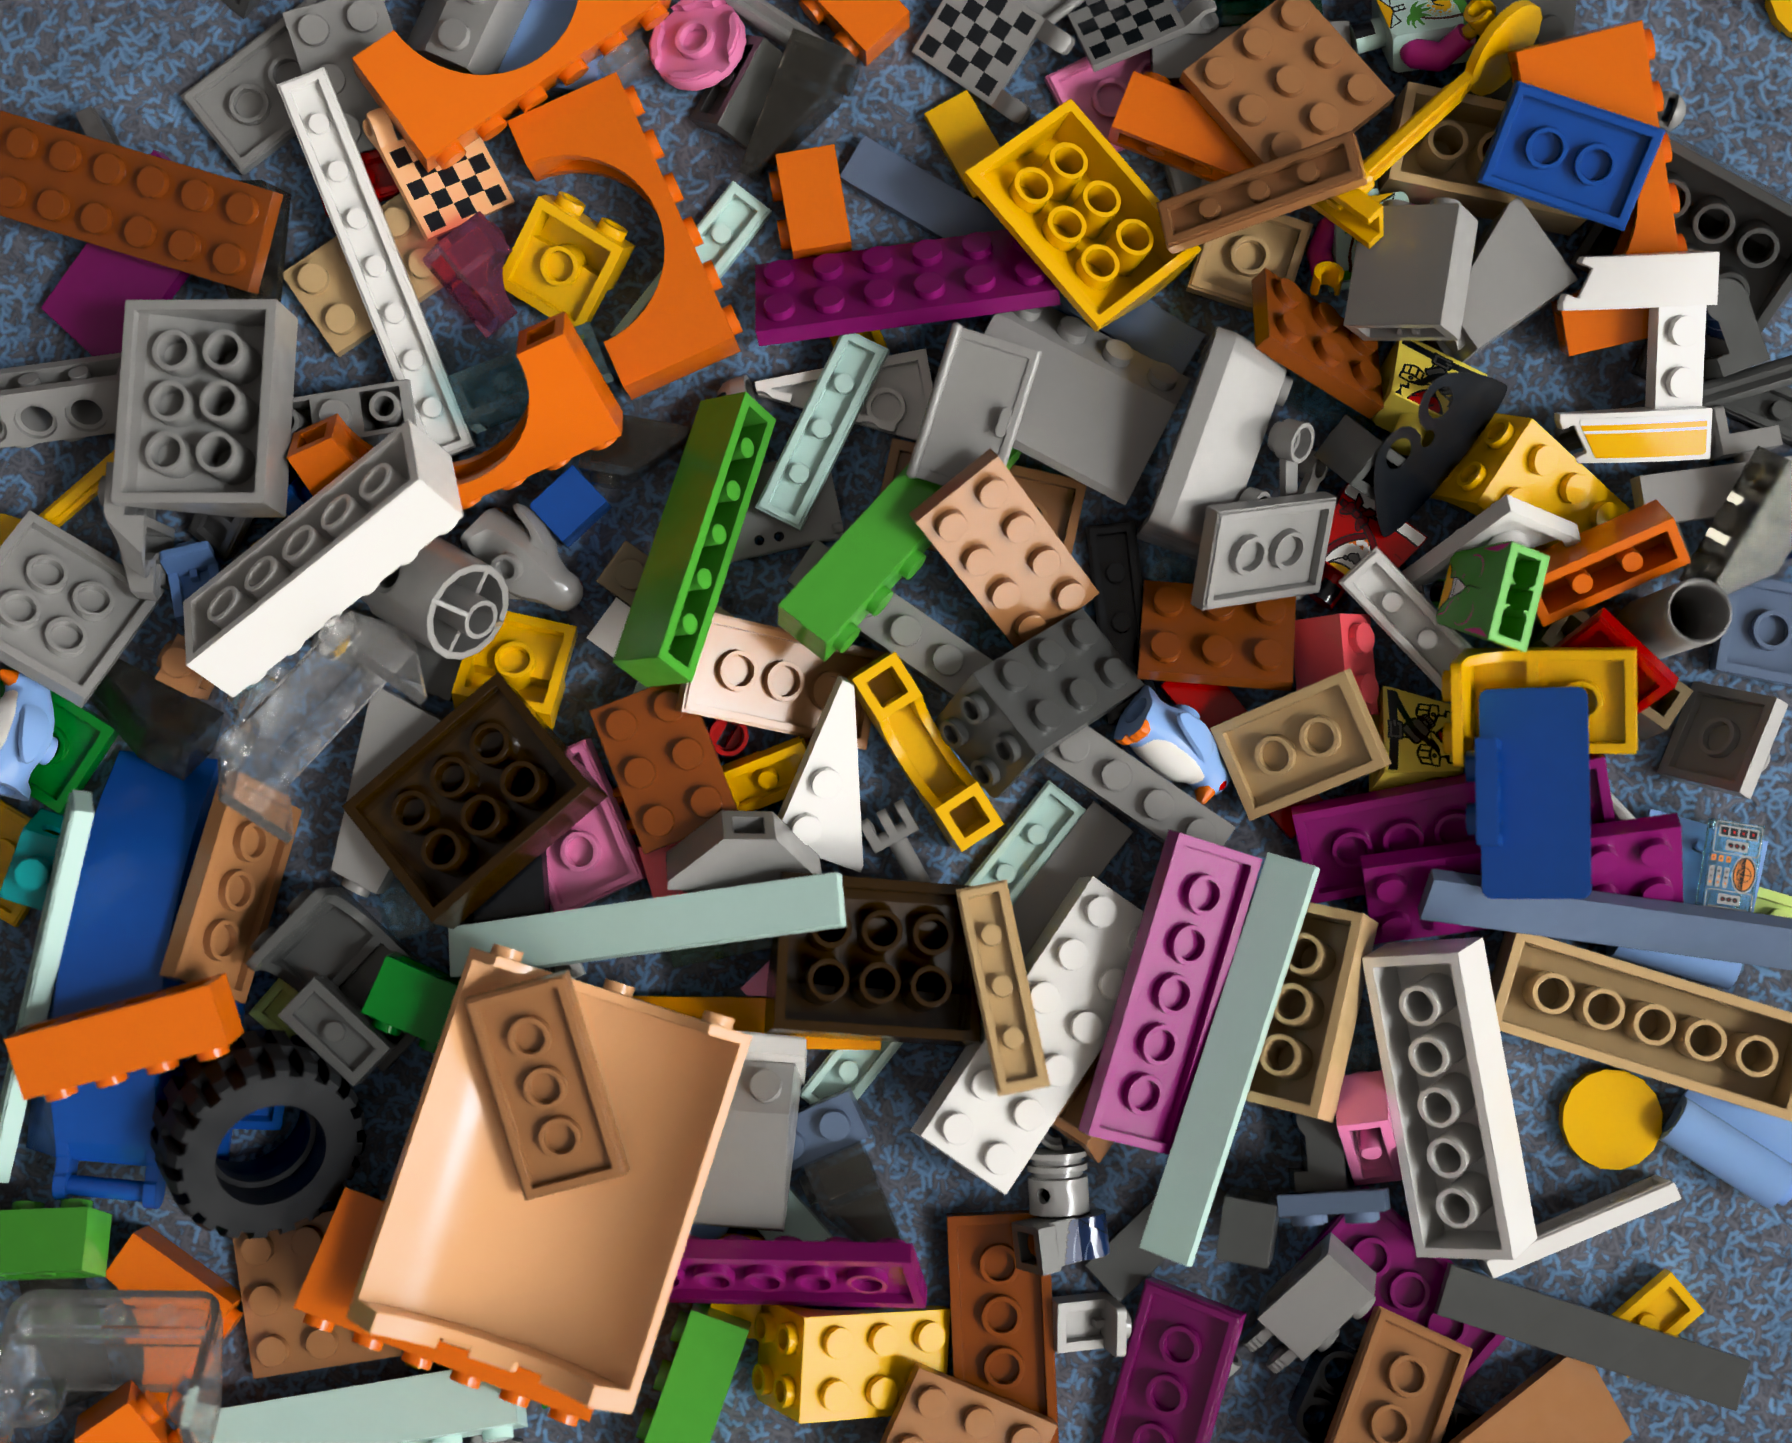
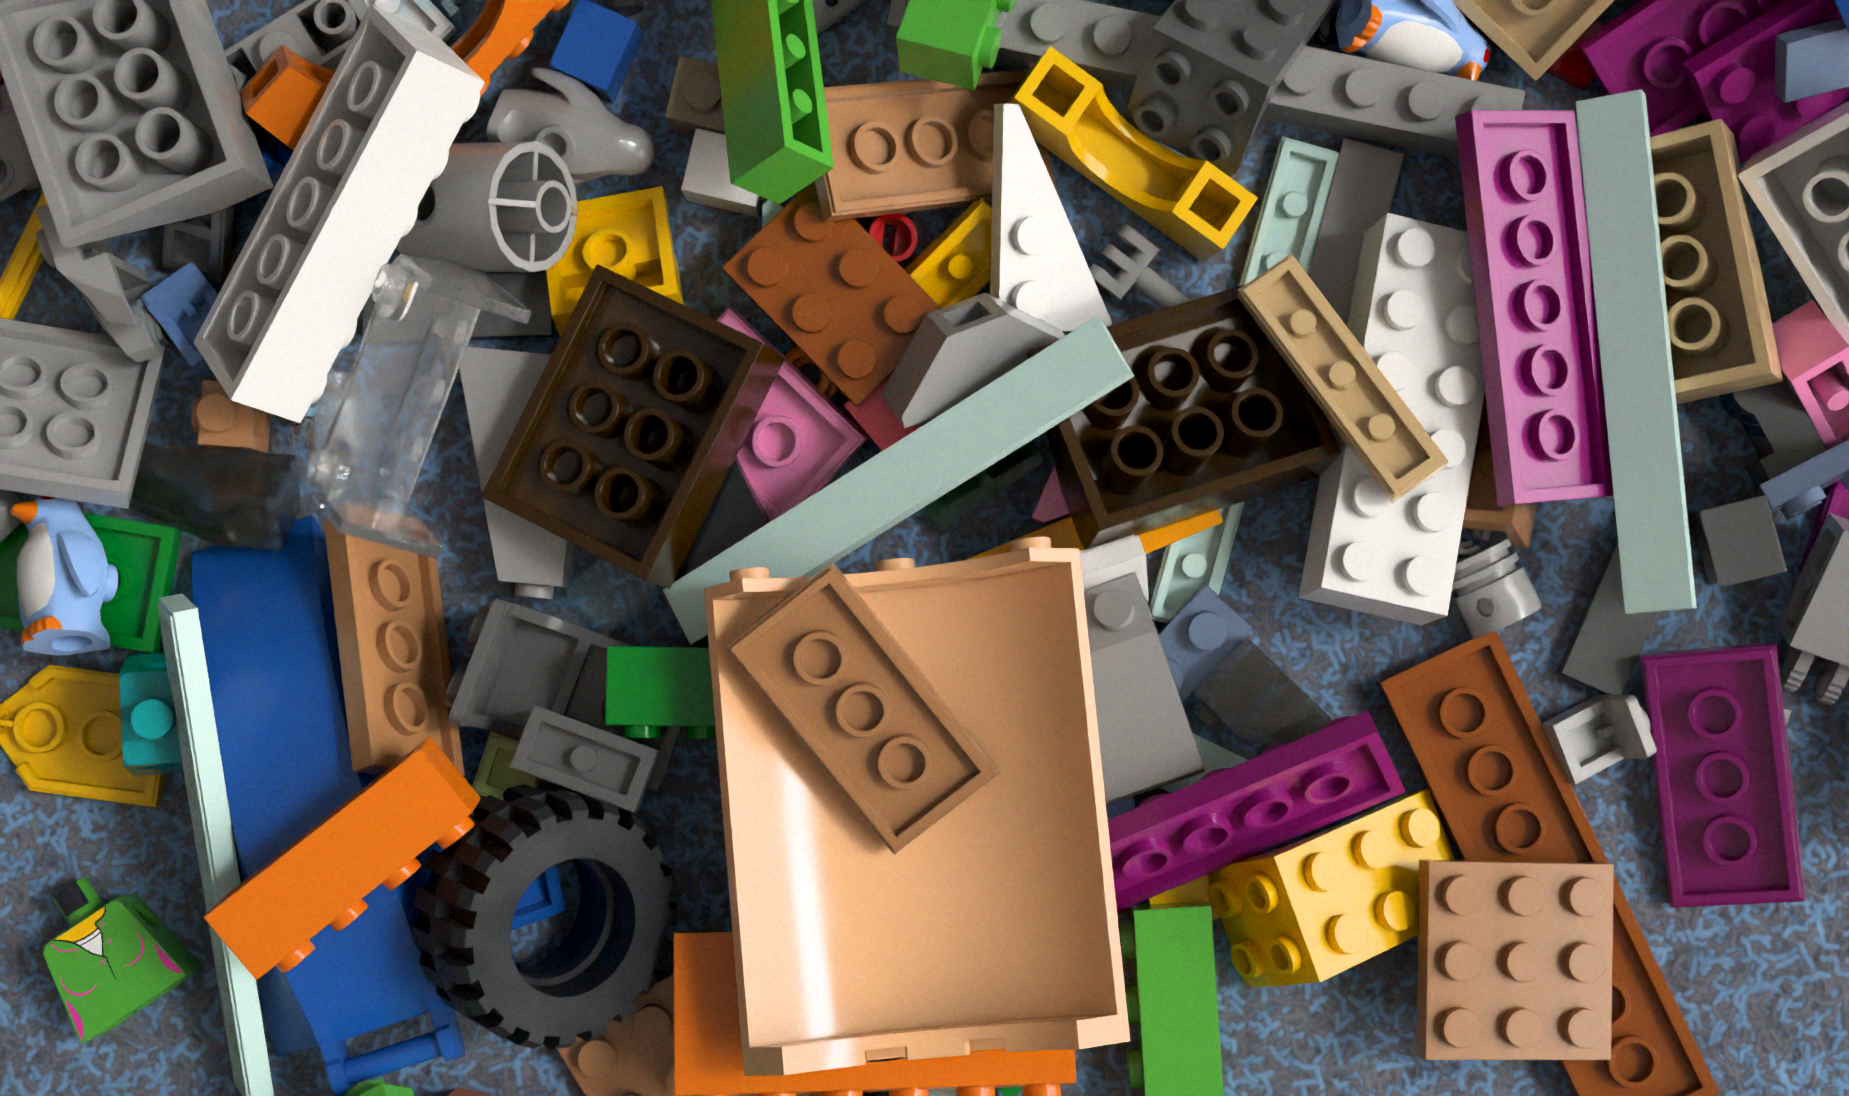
camera: 20 degrees left, 0 degrees up
(1060, 1241) = (1527, 650): dark grey leg -> none

